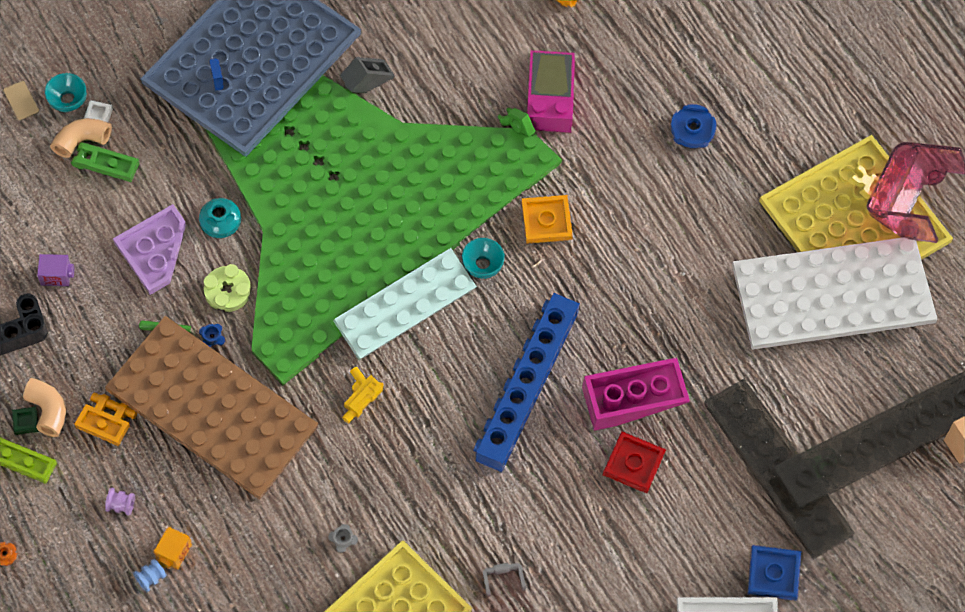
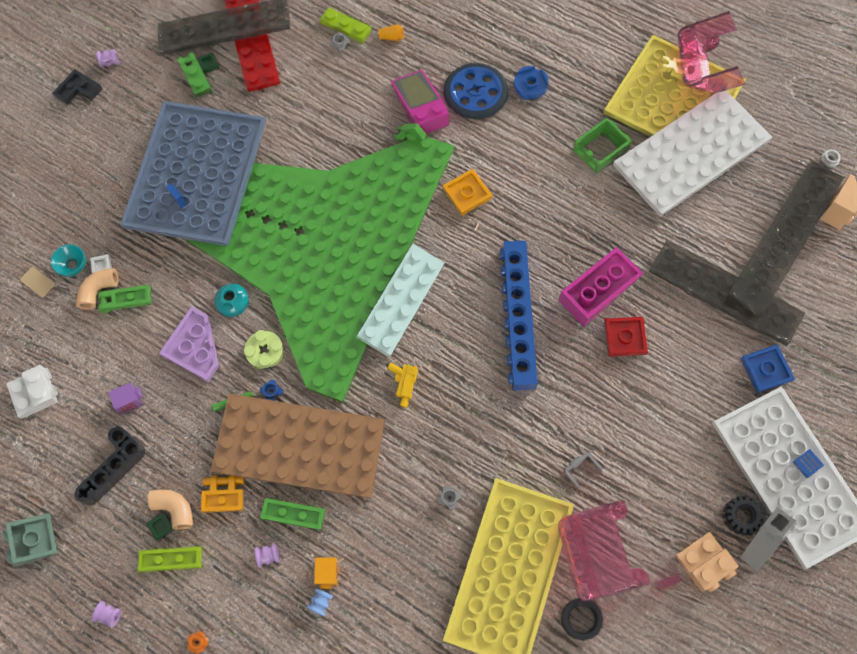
camera: 20 degrees left, 5 degrees up
(168, 474) = (292, 514): none -> bright green plate
(366, 74) = (284, 148): dark grey slope -> none
(483, 249) = (435, 233): teal piece -> none
(611, 82) = (479, 71): none -> wedge
(730, 219) = (613, 133): none -> bright green window

